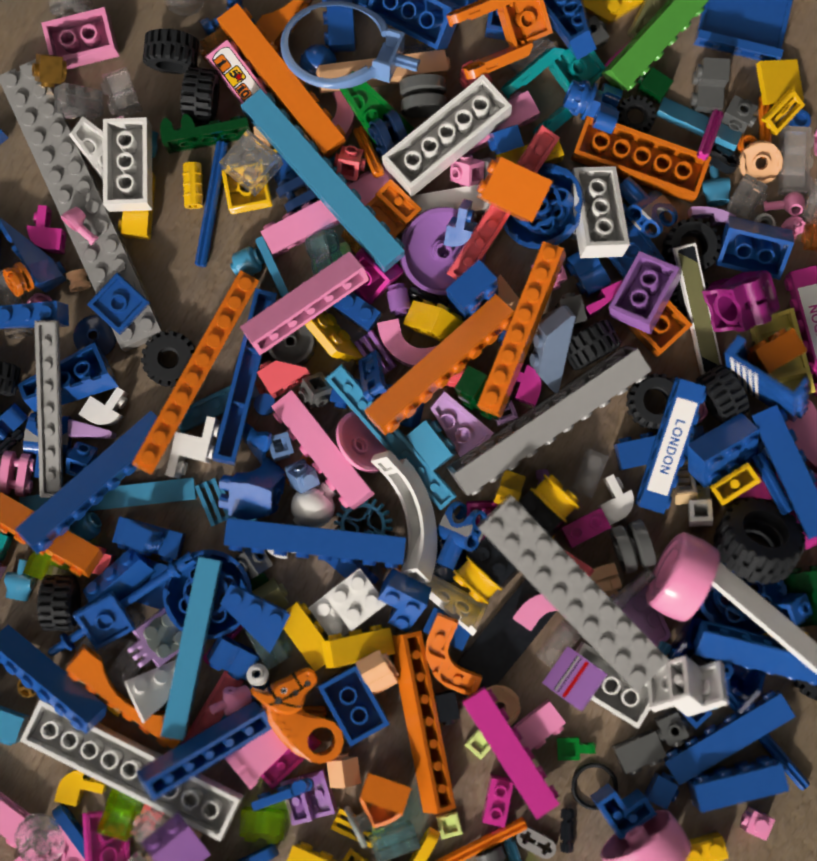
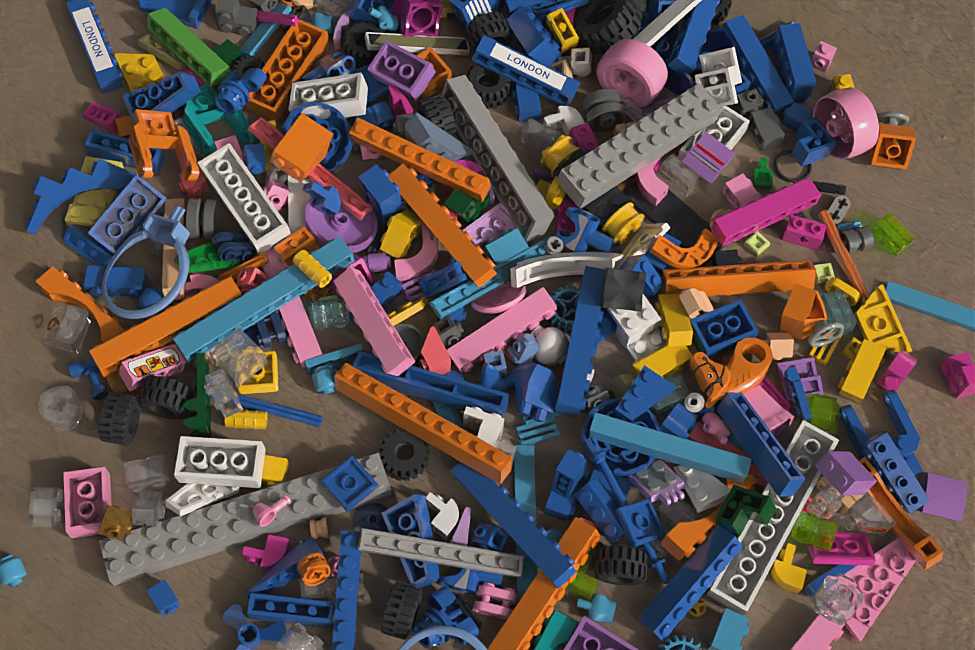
camera: 90 degrees left, 20 degrees down
(126, 733) = (743, 506): none -> dark green brick
(206, 154) = (223, 392): none -> clear brick
(354, 224) = (312, 268): none -> yellow axle
(371, 582) = (623, 289): none -> black brick
(446, 496) = (555, 240): none -> light grey bush
(724, 265) = (385, 18): none -> dark azure piece

